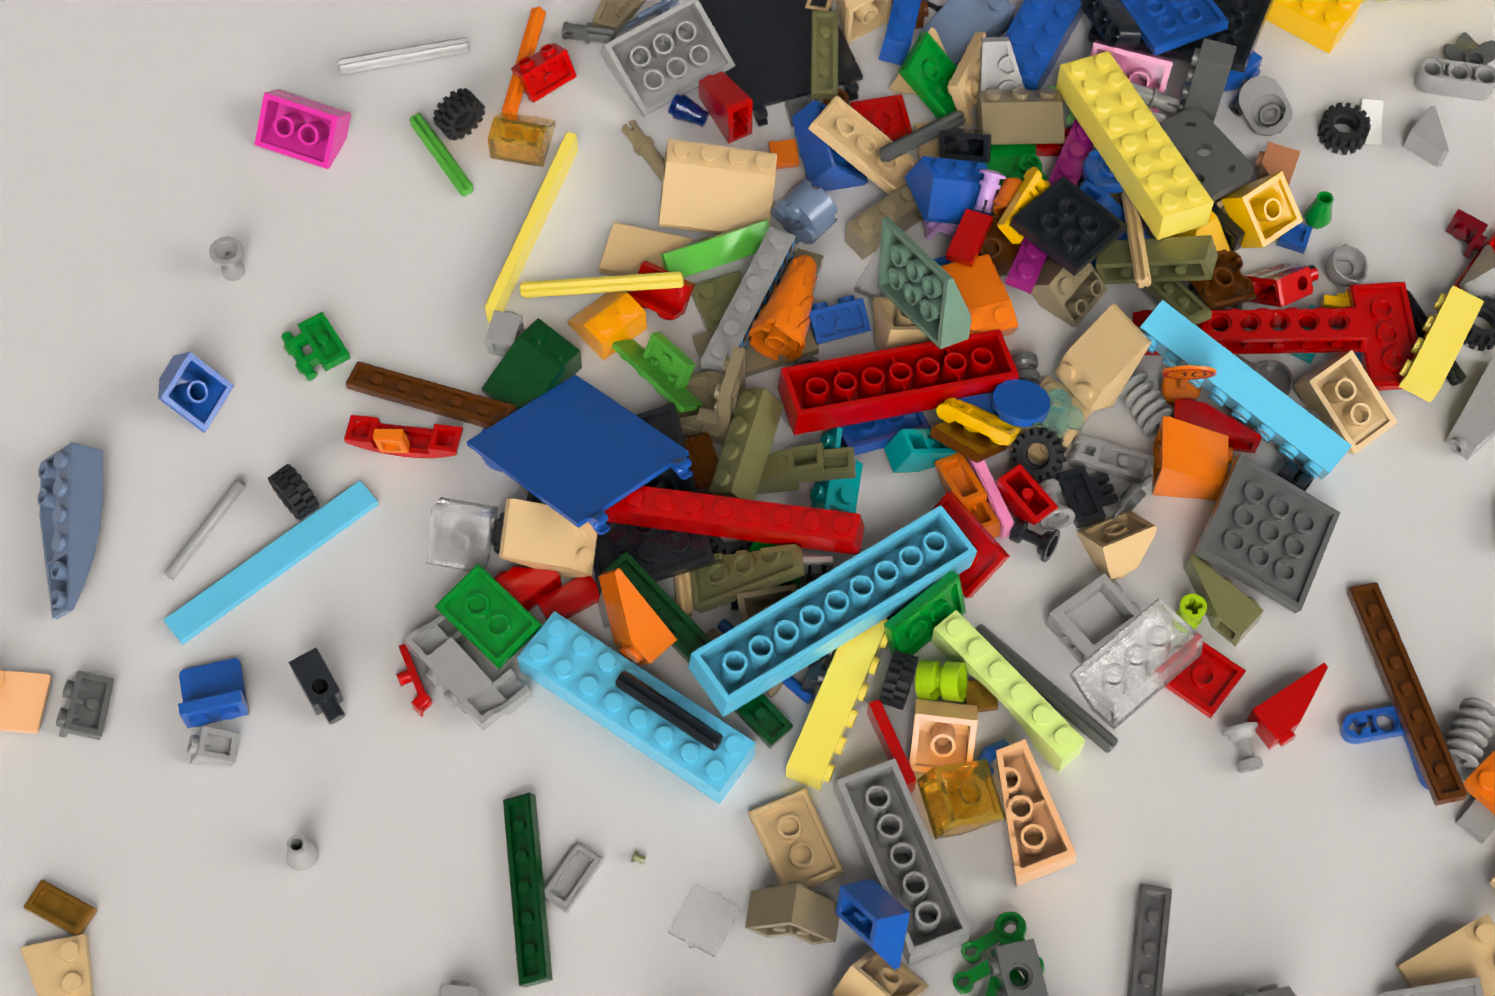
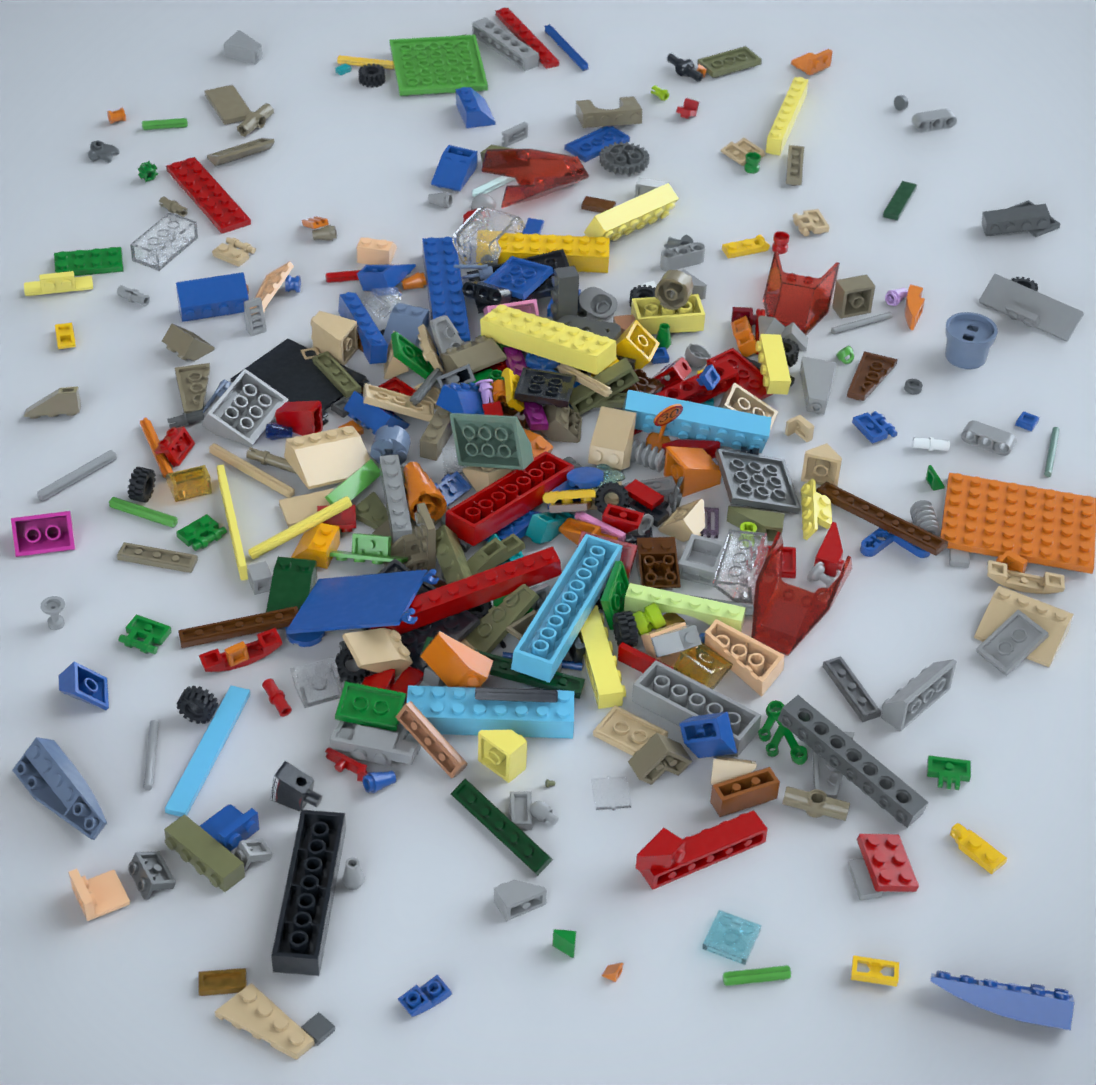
camera: 35 degrees left, 20 degrees down
(158, 712) = (204, 853): none -> olive brick
(230, 849) = (309, 893): none -> black brick
(400, 529) = (276, 697): none -> red pin
(412, 234) = (157, 557): none -> dark tan tile
(430, 729) = (378, 780): none -> blue cone
(487, 217) = (201, 532): none -> green plate
(525, 711) = (431, 740): none -> nougat brick
(594, 899) = (543, 812): none -> light grey cylinder
(603, 787) = (502, 752): none -> light yellow slope
(614, 157) = (251, 470): none -> tan axle
(945, 743) = (676, 640): none -> light grey slope
(1024, 596) = (657, 562): none -> reddish brown slope
(1089, 469) = (644, 494): none -> red tile
(1142, 577) = (708, 531): none -> clear purple tile
(1150, 767) = (786, 612): none -> clear red windscreen
(1313, 328) = (709, 377): none -> blue tile
(1322, 624) = (815, 509): none -> light yellow bracket
(1354, 174) = (685, 319): none -> light yellow brick
(1376, 145) = (674, 289): none -> dark tan brick
(1380, 557) = (821, 465): none -> tan slope
(1409, 468) = (801, 427): none -> tan bracket
(1441, 266) = (744, 336): none -> orange slope

